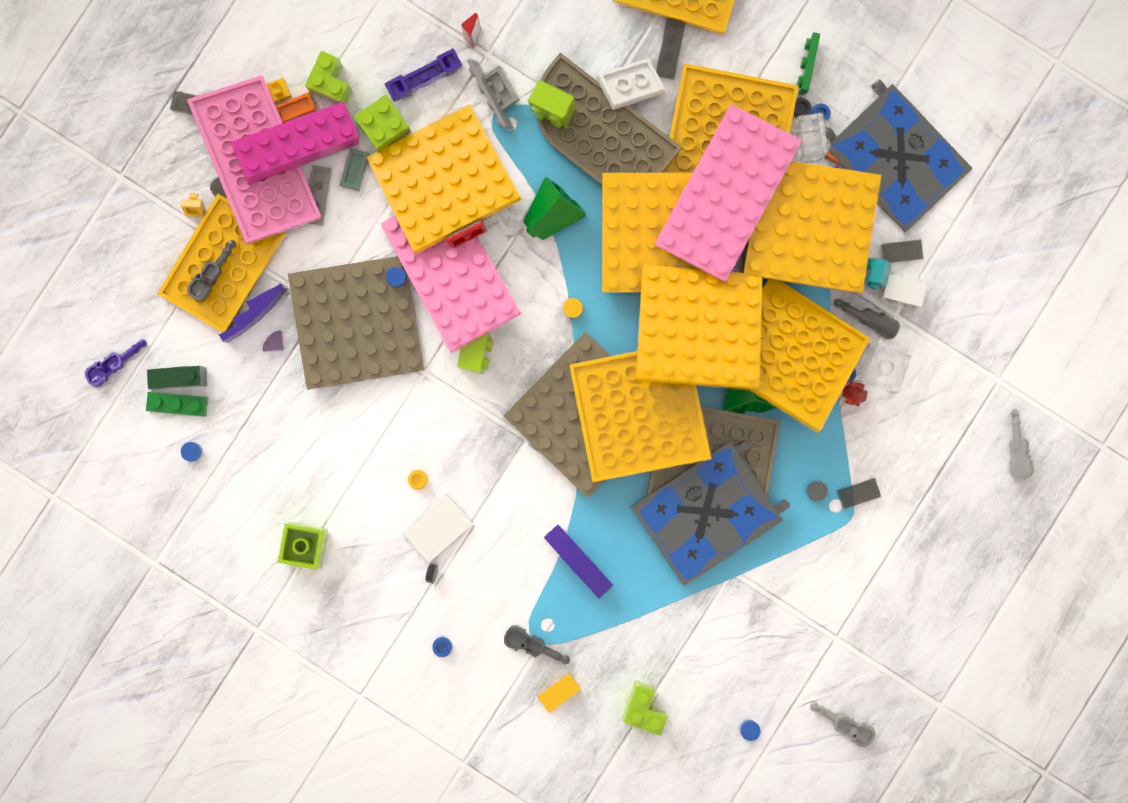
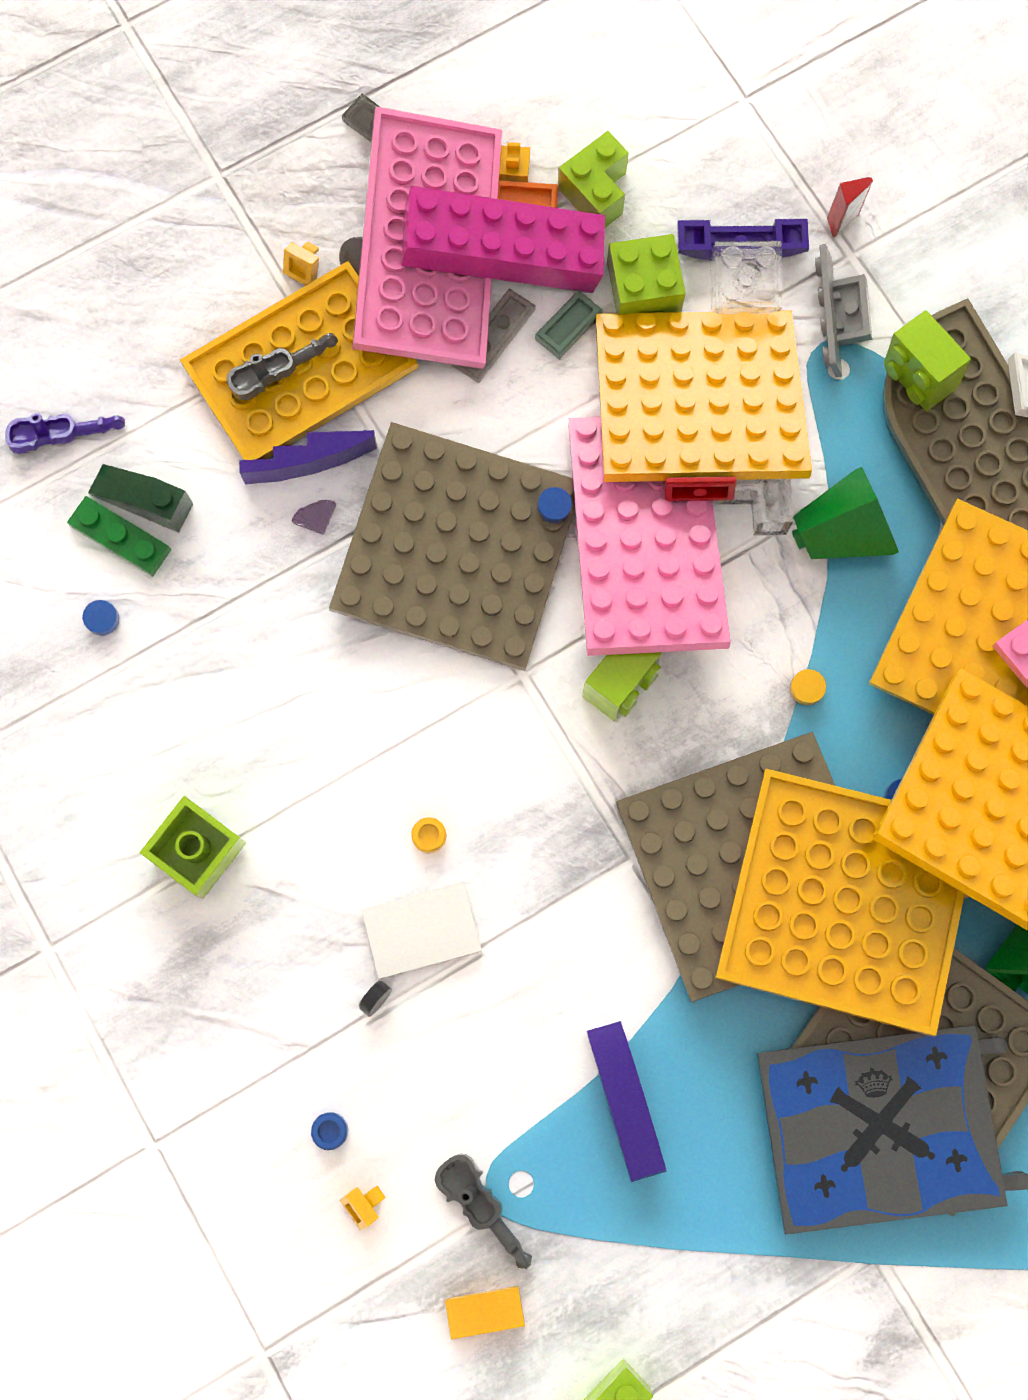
camera: 25 degrees right, 10 degrees down
(475, 674) = (361, 1206): none -> yellow tile

